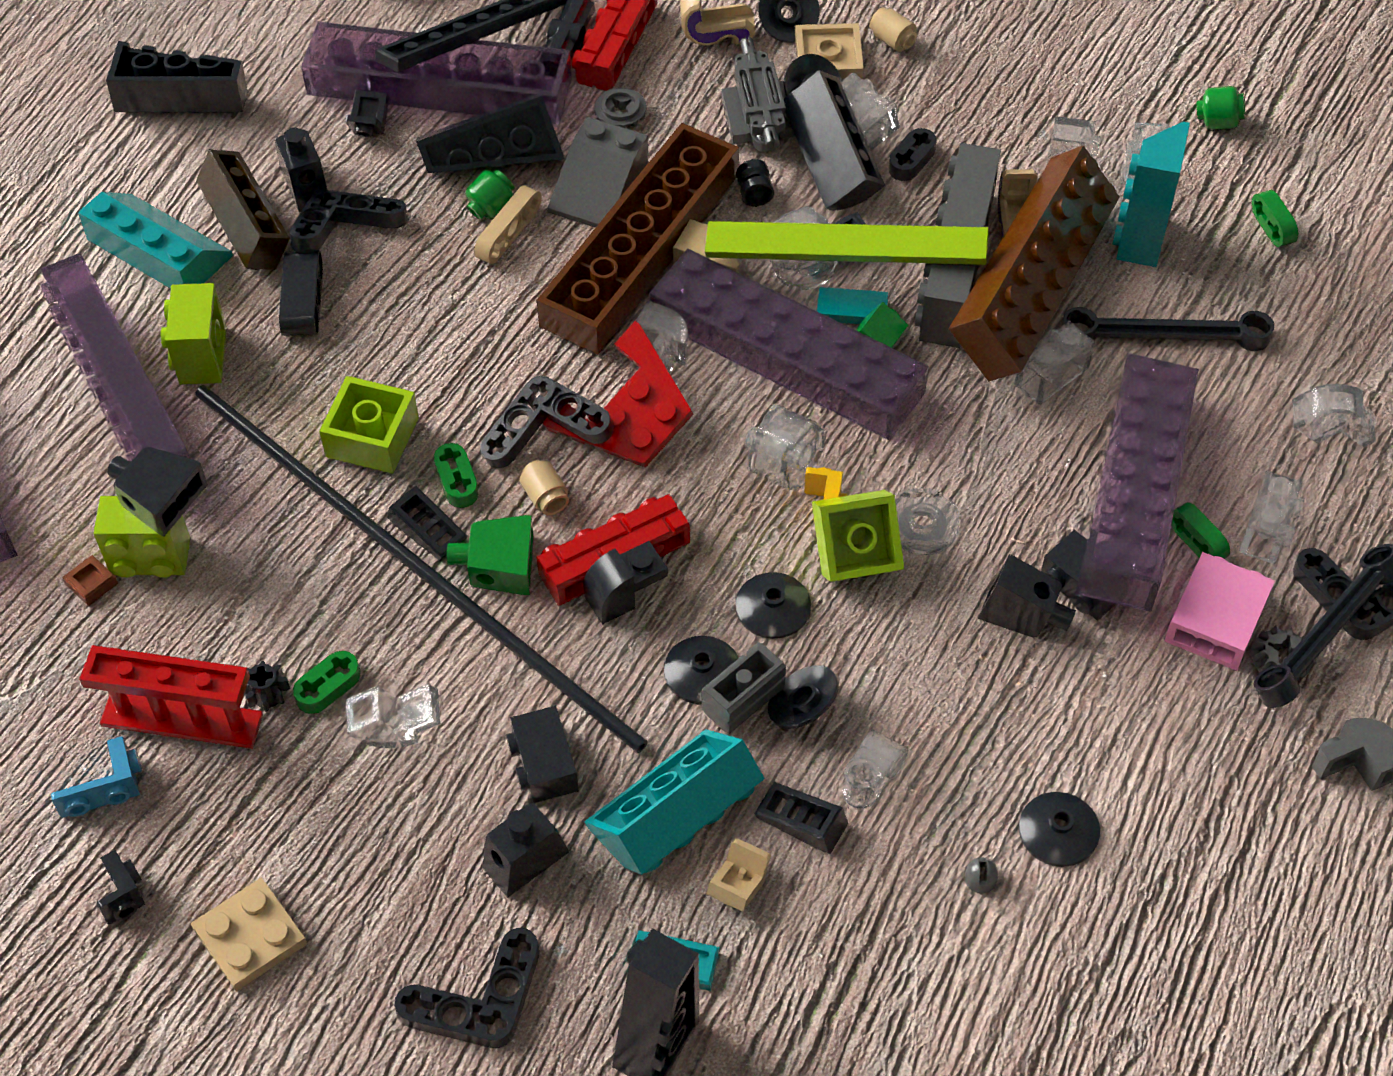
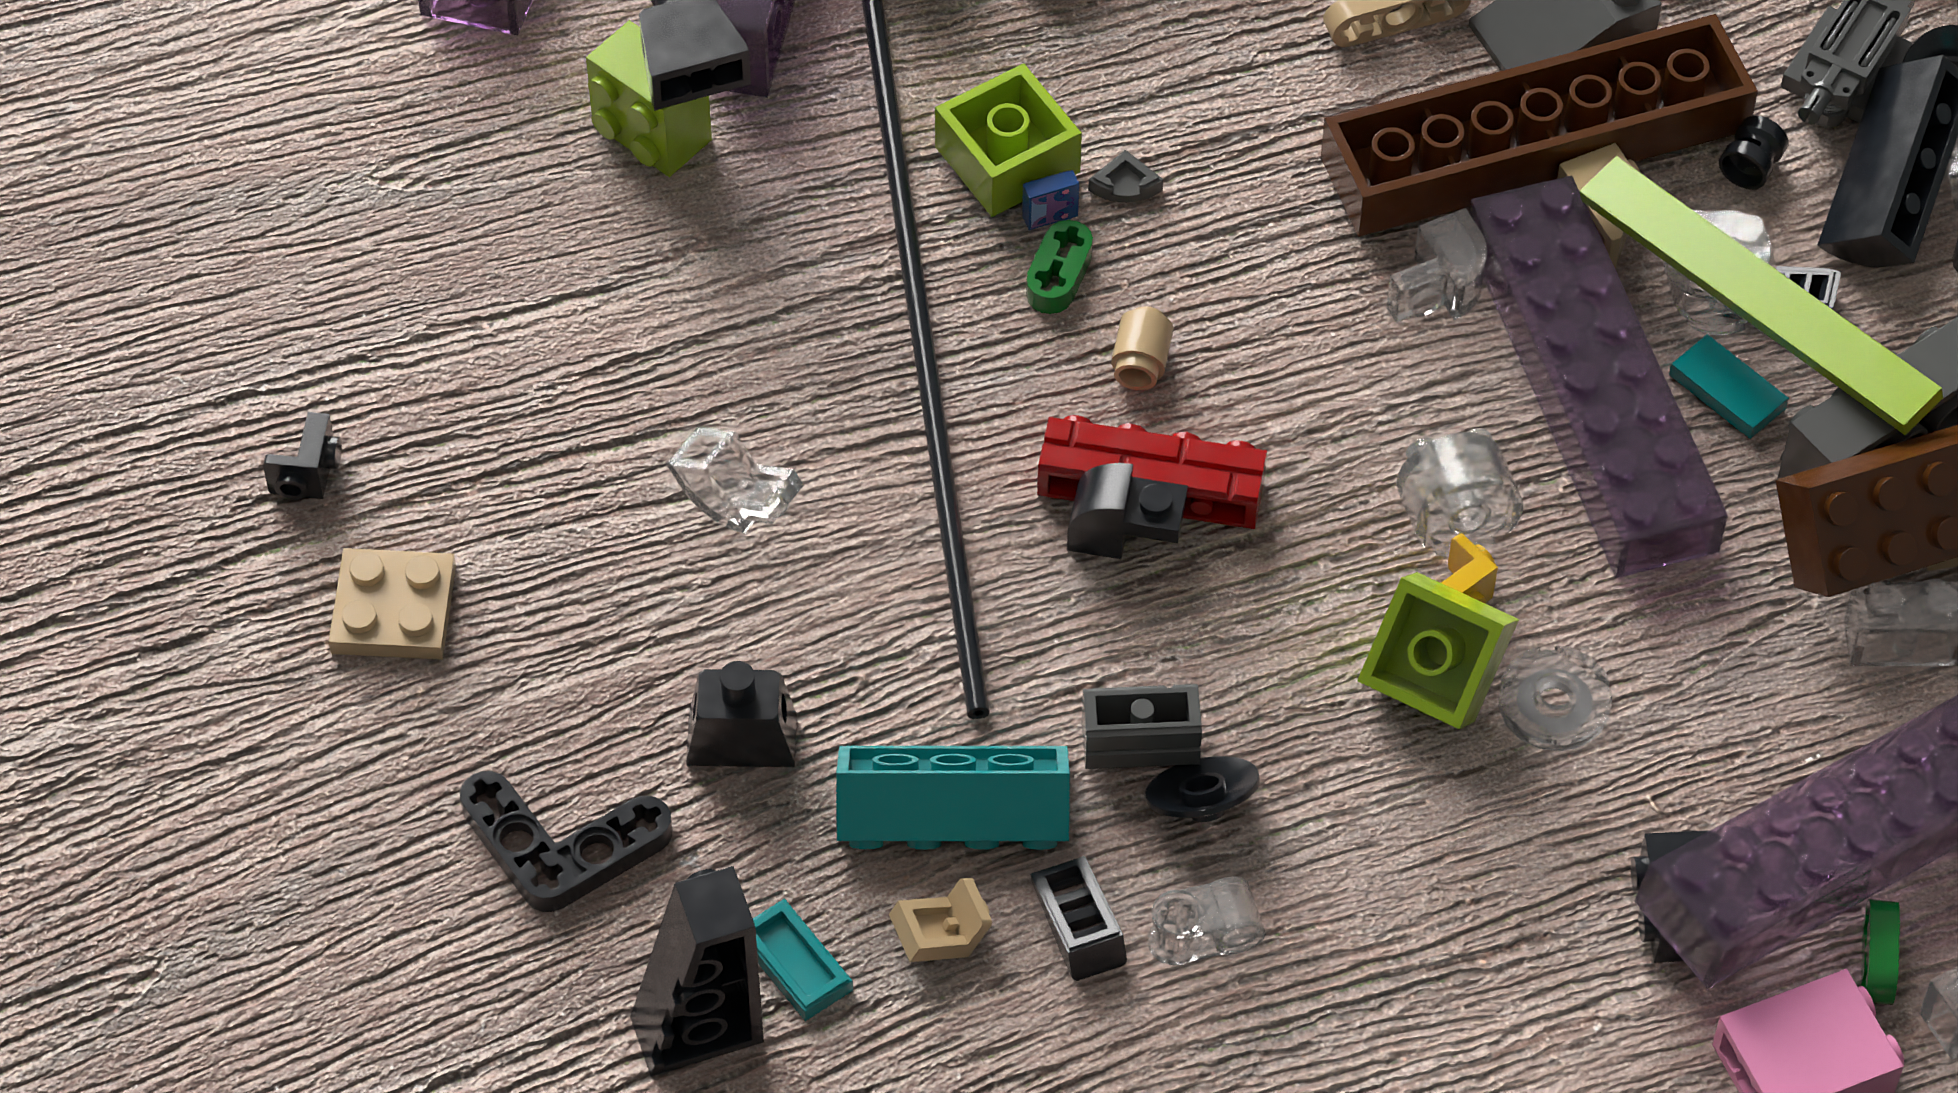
camera: 40 degrees right, 0 degrees up
(90, 580) = (564, 114): copper tile -> none
(106, 790) = (389, 354): dark azure bracket -> none
(172, 696) = (519, 294): red fence -> none
(266, 686) = (635, 354): black gear -> none
(327, 682) = (707, 398): green beam -> none
(417, 499) = (973, 261): black slope -> none
(420, 442) = (1050, 199): none -> blue tile
(447, 406) = (1125, 180): none -> dark grey tile
(497, 554) = (1018, 387): green torso -> none
(543, 754) = (857, 640): black brick -> none
(546, 407) = (1226, 255): black beam -> none
(644, 410) = (1332, 338): red wing -> none
(688, 678) = (1104, 658): black dish -> none
(770, 617) = (1278, 685): black dish -> none
(883, 325) = (1726, 433): green brick -> none
(1025, 600) = (1570, 866): black torso -> none

